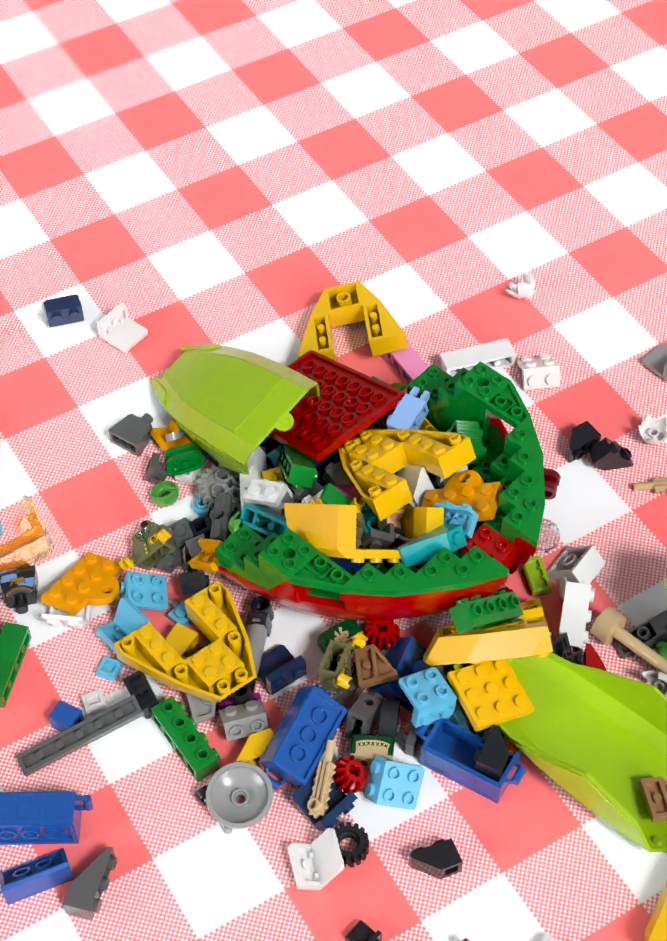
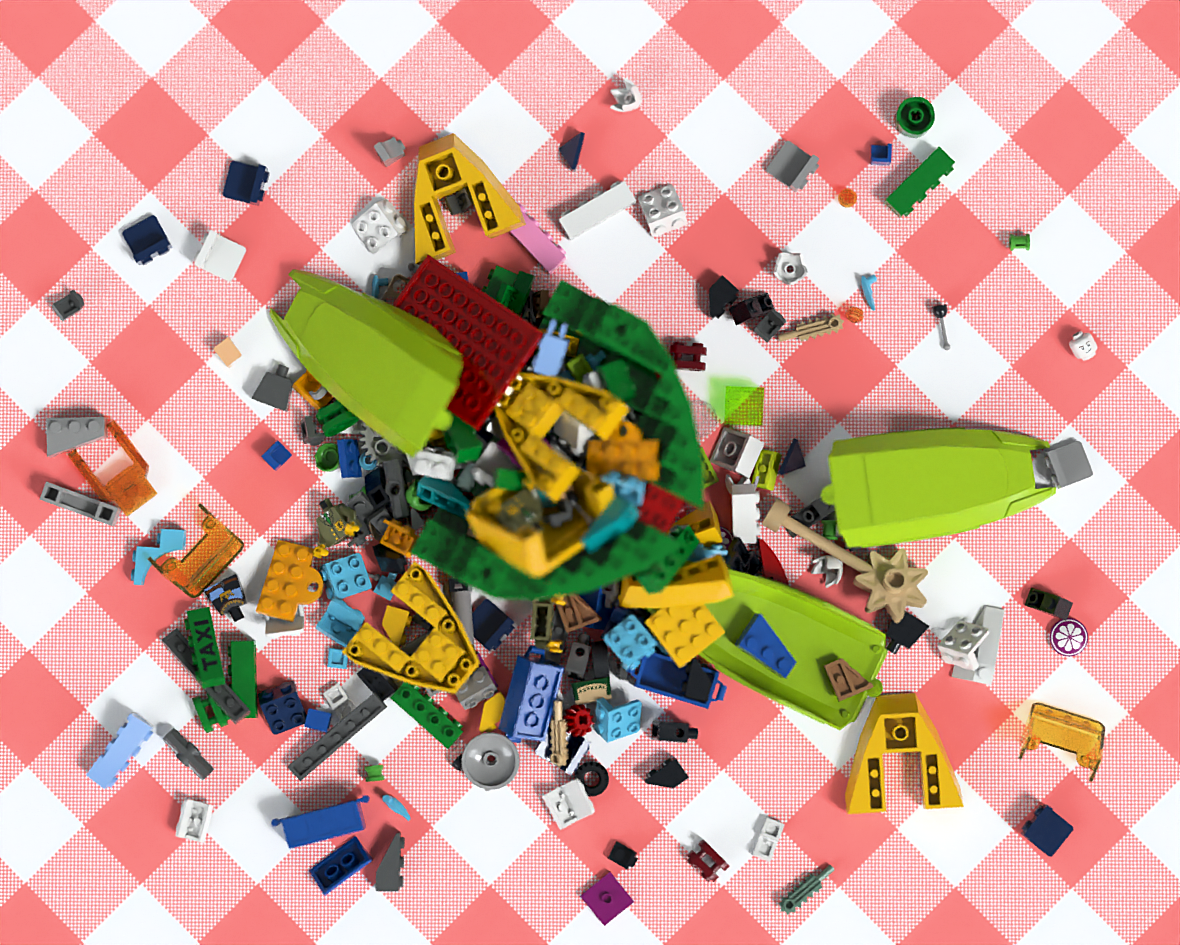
camera: 10 degrees left, 35 degrees up
(32, 700) = (282, 707): none -> dark blue bracket
(100, 394) = (227, 352): none -> light nougat panel
(107, 784) = (374, 773): none -> bright green wheel
(114, 483) = (276, 455): none -> blue panel
(118, 824) = (396, 806): none -> medium azure bar
(167, 288) = (246, 182): none -> dark blue bracket
(183, 495) = (349, 458): none -> blue plate
(272, 334) = (379, 225): none -> white bracket
(299, 285) = (390, 151): none -> light grey arch
(355, 331) = (460, 202): none -> dark grey bracket
(417, 650) = (611, 591): none -> dark grey plate
(453, 811) = (666, 732): none -> black torso
(465, 316) = (572, 150): none -> dark blue slope
(576, 739) = (764, 646): none -> blue wedge
(589, 527) = (743, 406): none -> clear neon green piece
(606, 589) = (767, 469): none -> neon yellow slope
(627, 472) = (770, 325): none -> dark grey bracket
(632, 586) = (793, 459): none -> dark blue slope

